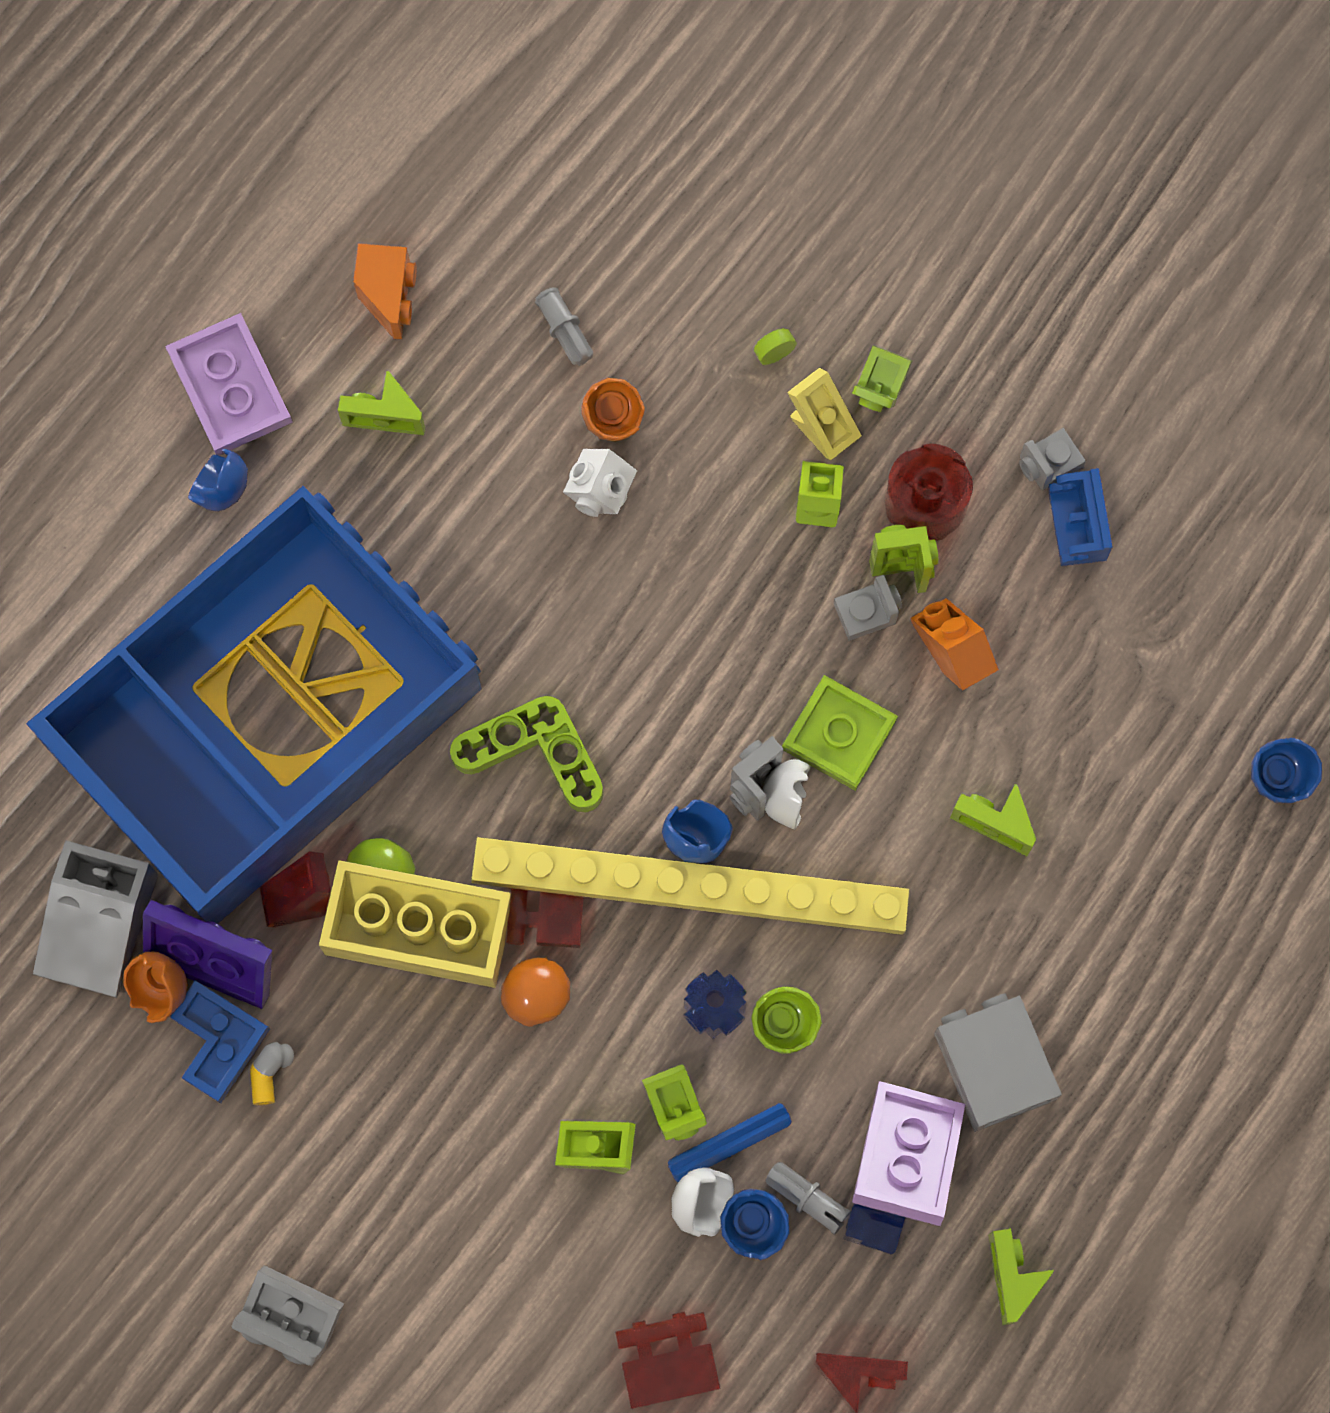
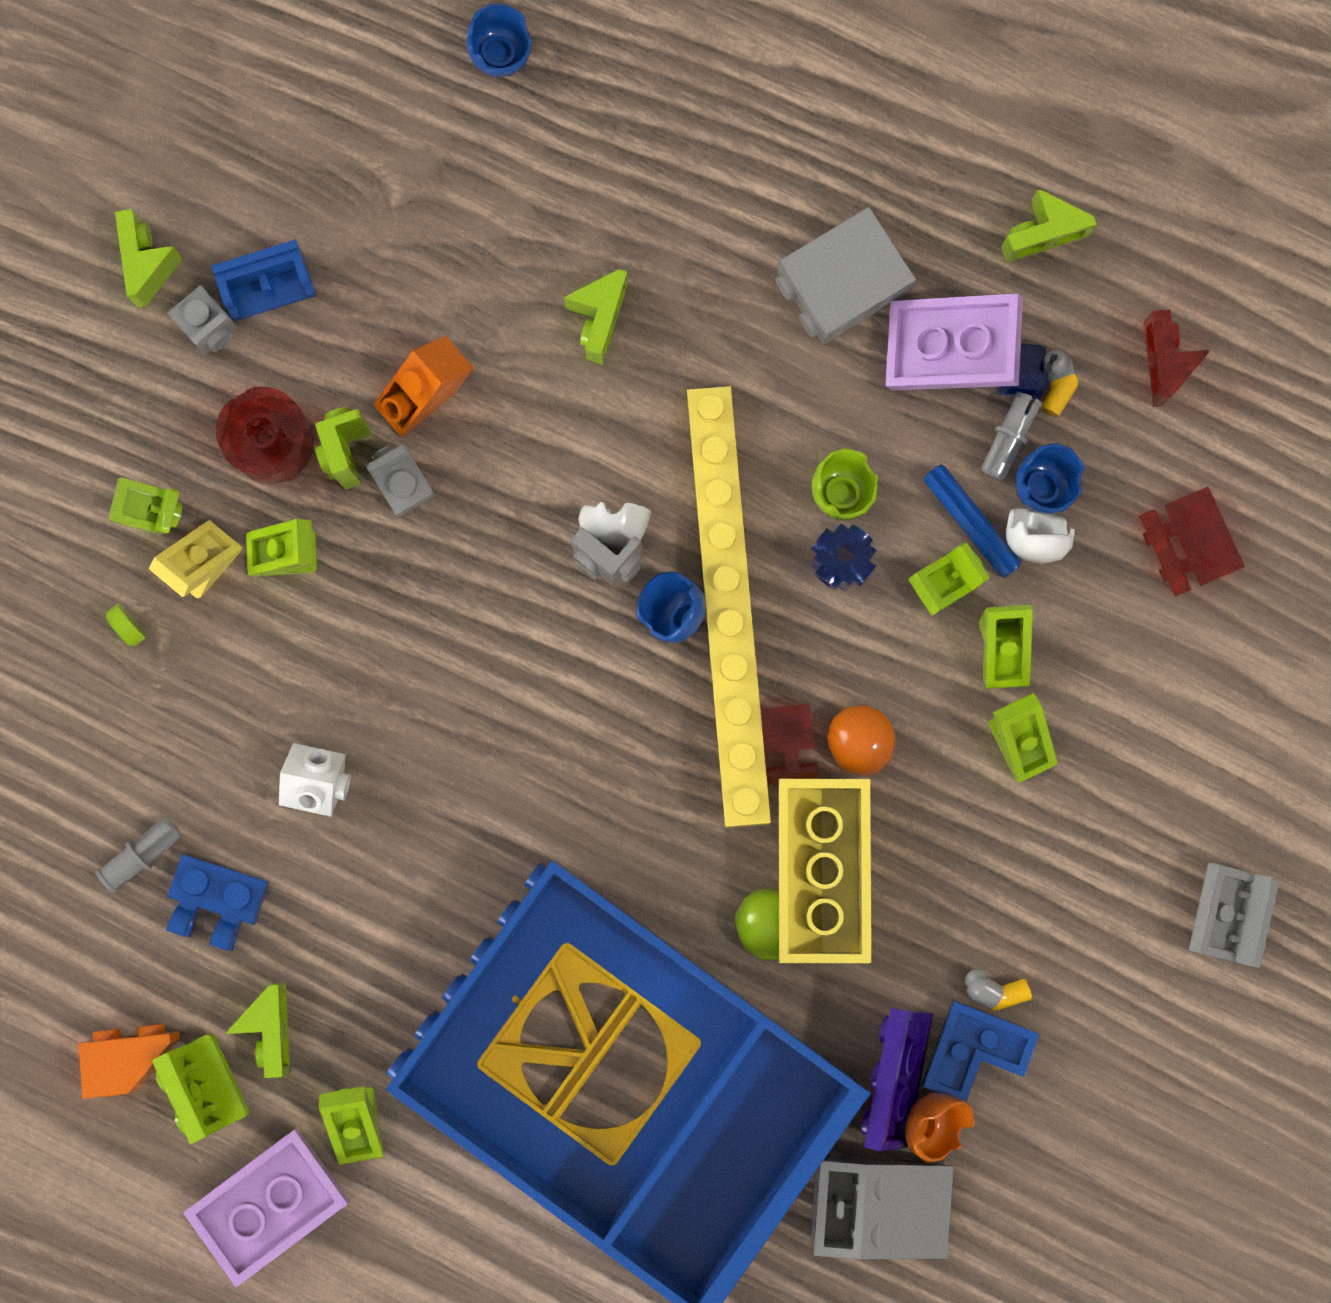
camera: 100 degrees left, 10 degrees up
(220, 482) = (382, 1190): blue hair -> none
(284, 466) = (352, 1124): none -> lime slope
(297, 892) = (812, 1002): clear red slope -> none
(345, 343) = (200, 1088): none -> lime bracket
(504, 1145) = (1024, 737): none -> lime slope
(518, 388) = (217, 890): none -> blue plate
(545, 736) = (600, 780): lime beam -> none
(612, 409) = (228, 782): orange hair -> none
(839, 732) = (536, 486): lime tile -> none
(855, 1263) = (1061, 379): none -> arm
(1109, 409) = (142, 268): none -> lime slope

